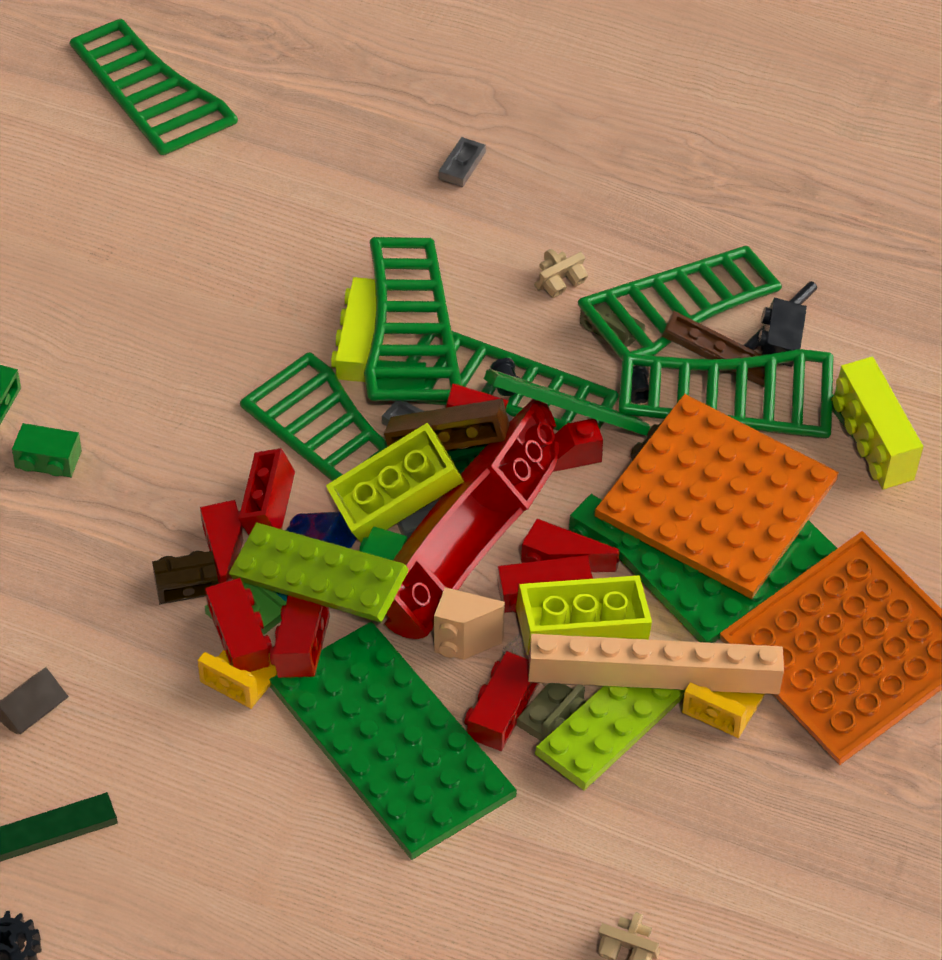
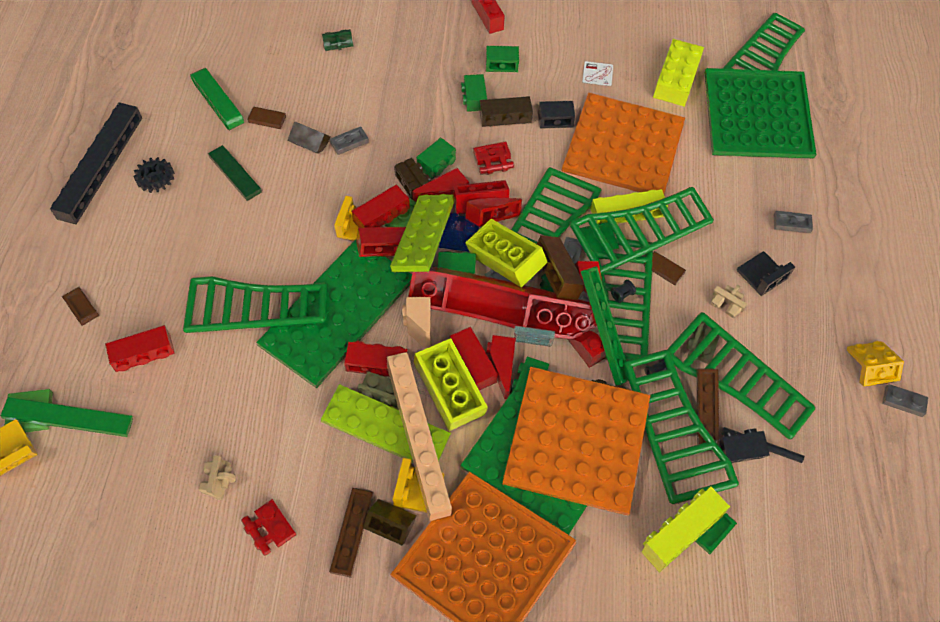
camera: 70 degrees right, 10 degrees up
(63, 646) = (349, 140): none -> flat silver plate
(77, 289) = (597, 73): none -> white sticker
(107, 422) = (505, 111): none -> dark brown brick
(136, 188) = (678, 72): none -> neon yellow brick
(143, 360) = (556, 114): none -> black brick
(158, 532) = (437, 158): none -> green brick
(181, 462) = (493, 153): none -> red plate
(235, 301) = (624, 144): none -> orange plate
(259, 126) = (759, 113): none -> green plate
(300, 489) = (498, 209): none -> red slope
(308, 843) = (248, 288): none -> green bar
(480, 323) = (666, 268): none -> reddish brown tile
(534, 221) = (764, 273): none -> black bracket
(542, 497) = (534, 336): none -> clear light blue tile
(707, 157) = (877, 362): none -> yellow bracket
(720, 888) = (274, 523): none -> red plate
(761, 797) = (351, 533): none -> reddish brown tile
(763, 744) = (389, 521): none -> dark brown brick
(767, 158) = (905, 400): none -> flat silver plate

